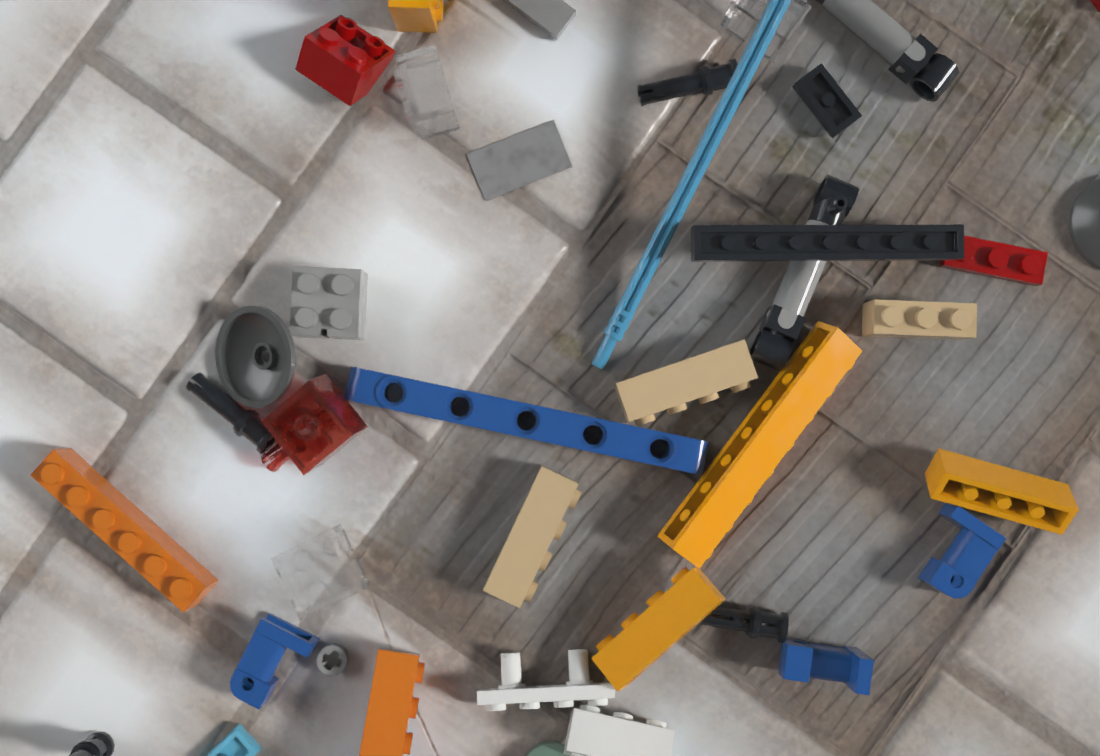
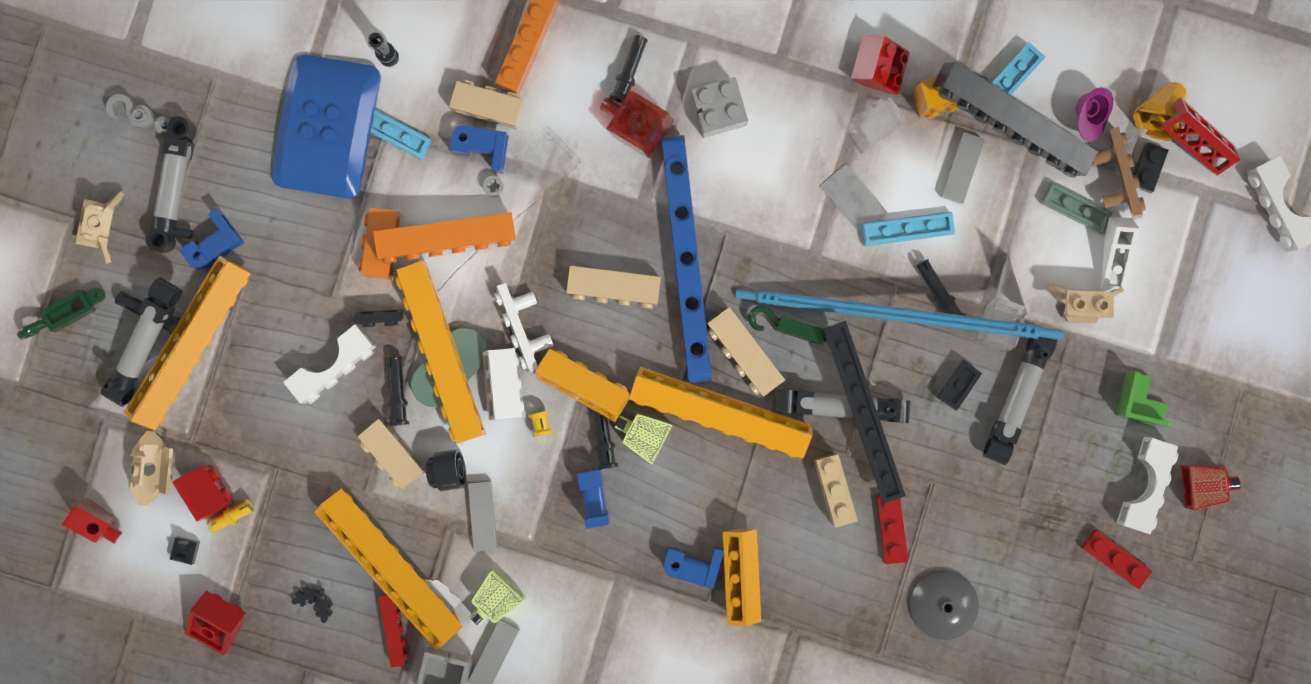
camera: 75 degrees right, 0 degrees up
(212, 631) = (487, 104): none -> tan brick
(255, 356) = (670, 72): dark grey dish -> none
(586, 99) = (908, 229): none -> medium azure tile
(668, 309) = (788, 326): none -> dark green piece
(701, 710) = (536, 418): none -> yellow bush
(756, 562) = (644, 435): none -> yellowish green torso

